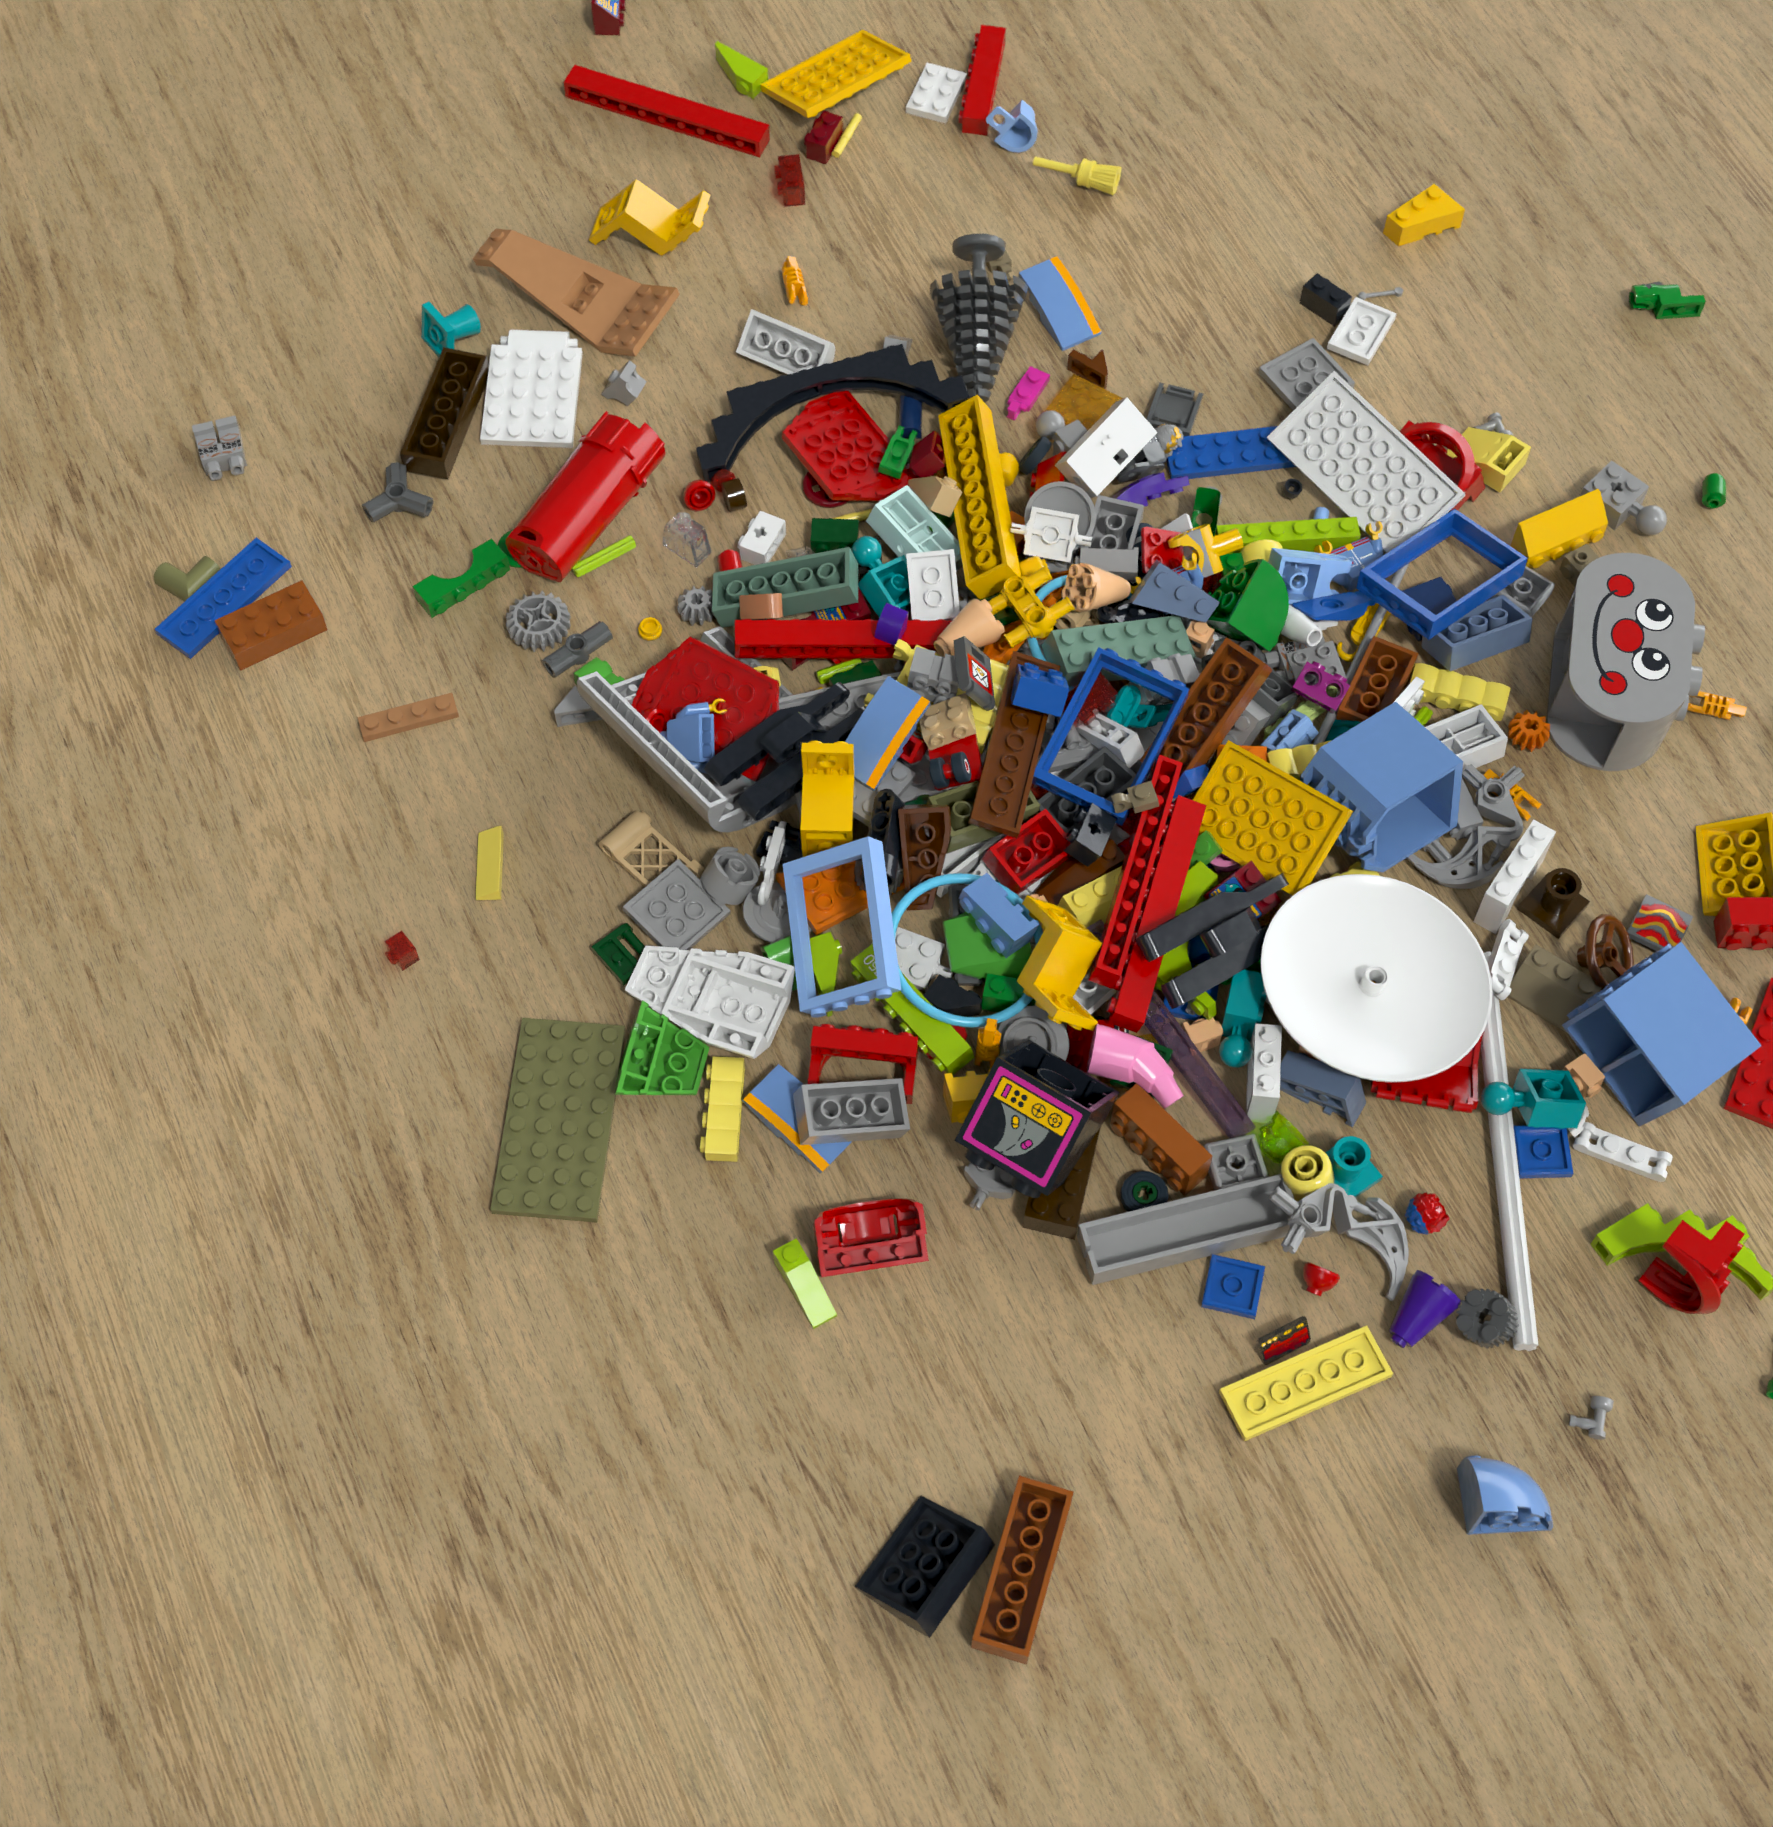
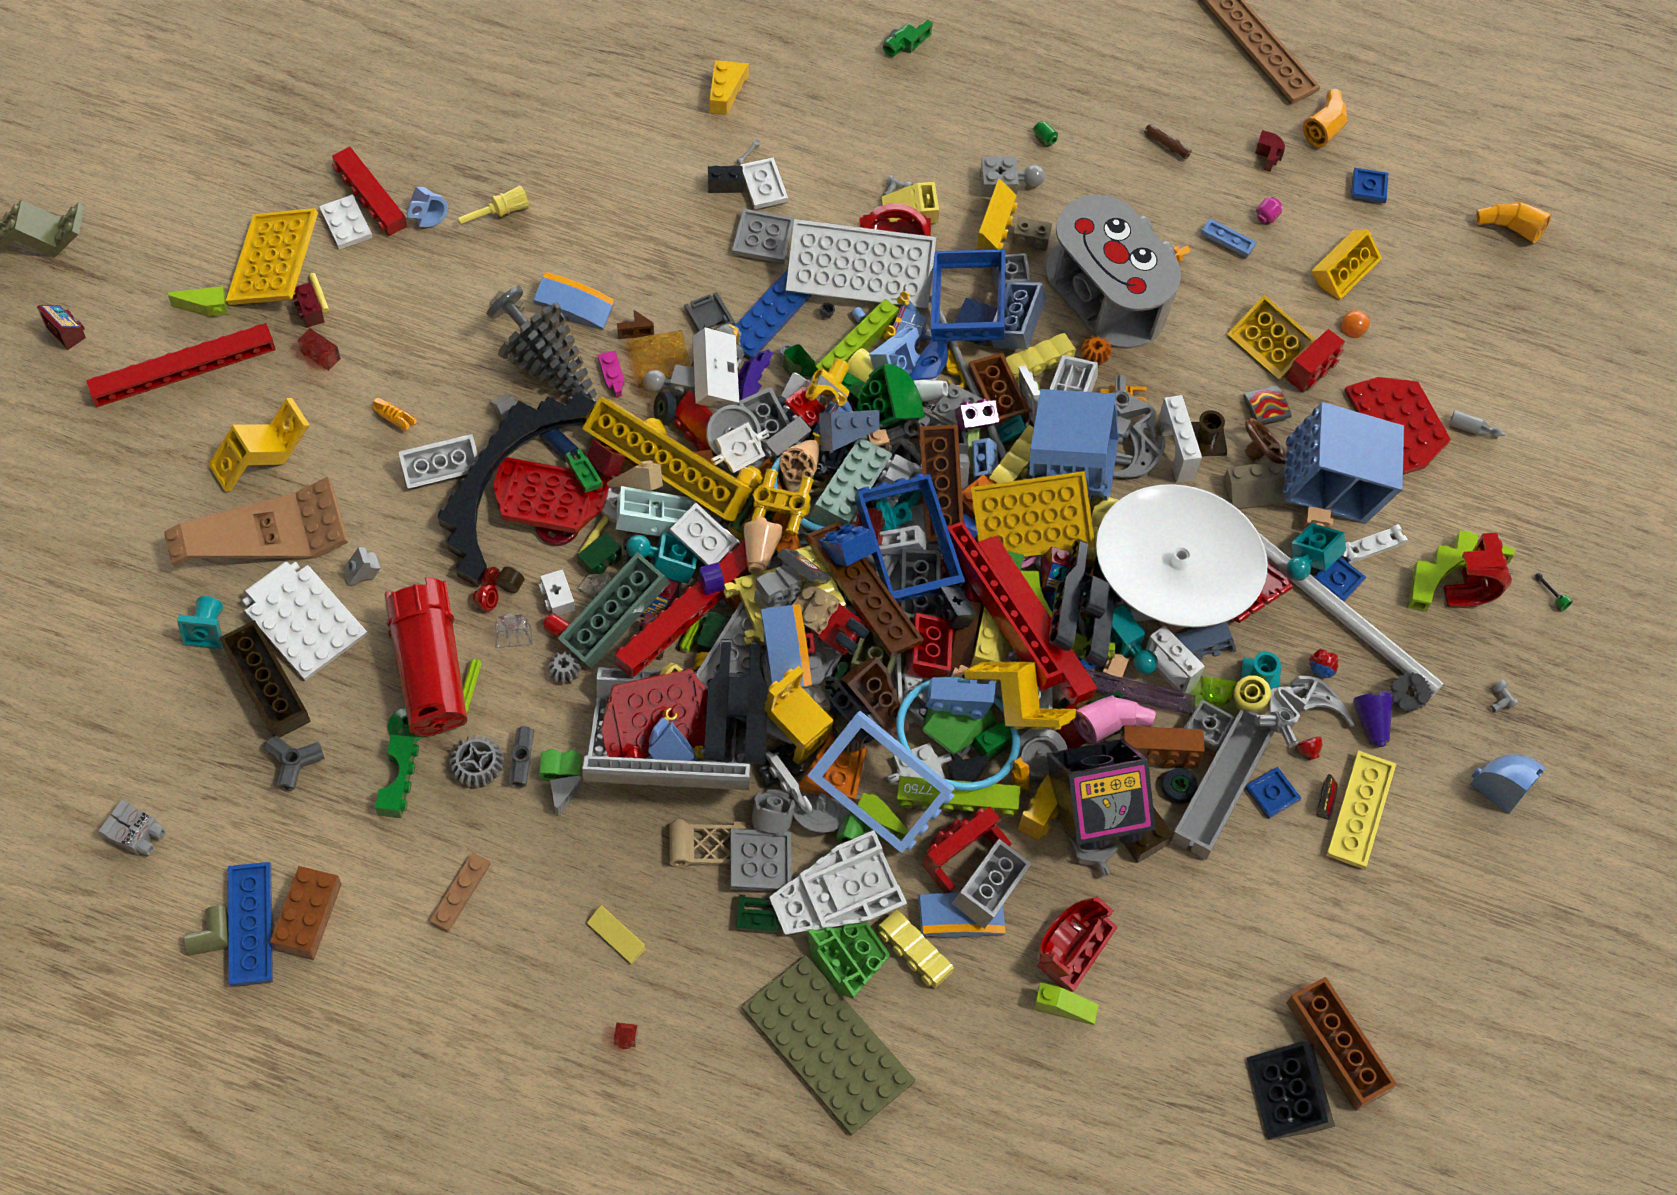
camera: 50 degrees left, 0 degrees up
(650, 629) = (550, 706): yellow plate -> none
(761, 606) = (621, 632): nougat panel -> none
(1139, 797) = (964, 562): dark tan plate -> none
(1505, 957) = (1214, 485): white plate -> none

